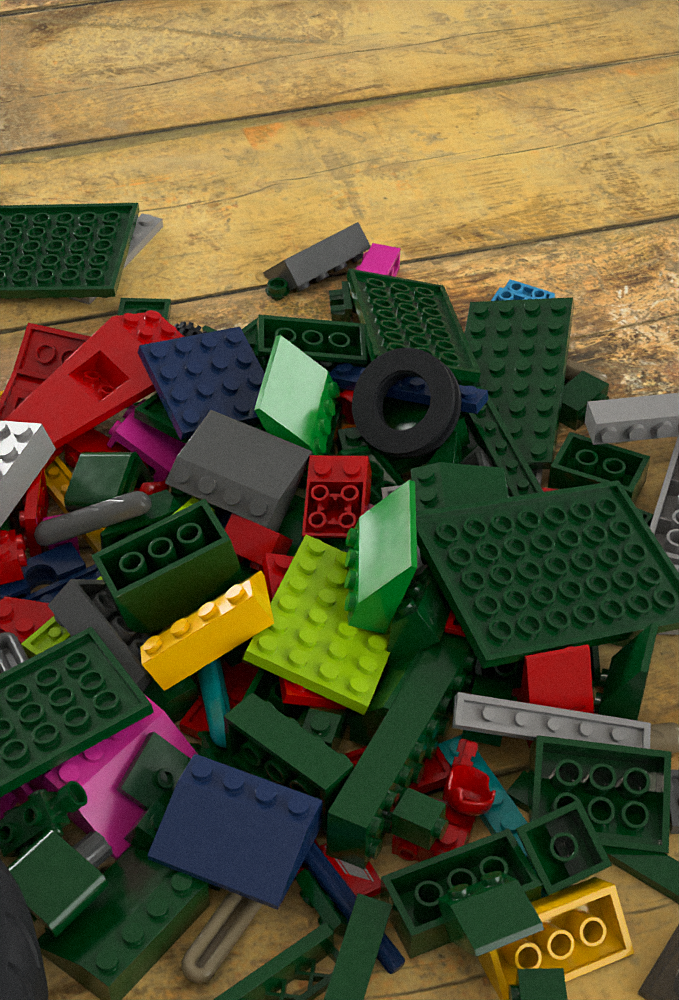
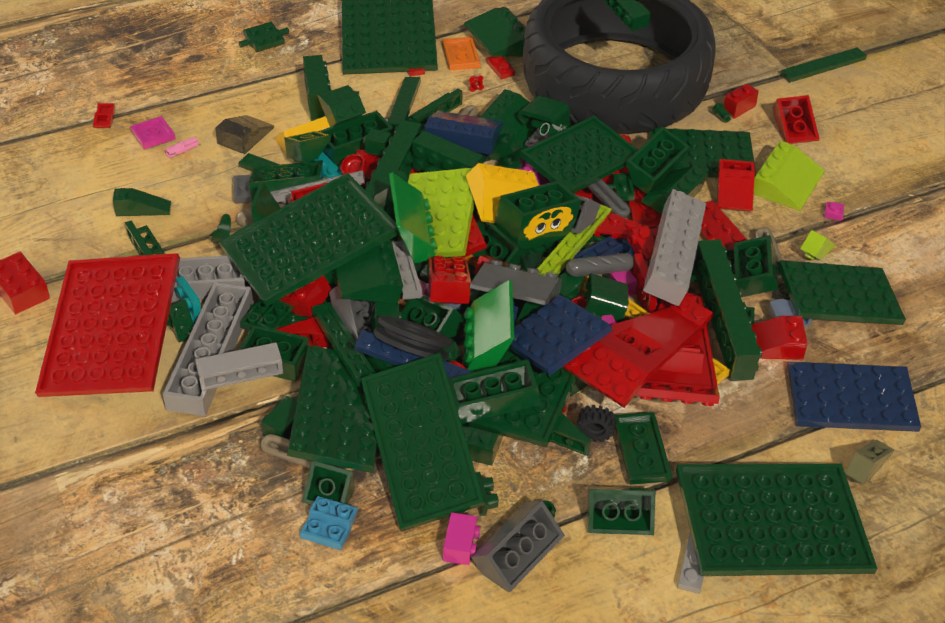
camera: 170 degrees right, 0 degrees up
(192, 278) = (621, 510): none -> dark green slope

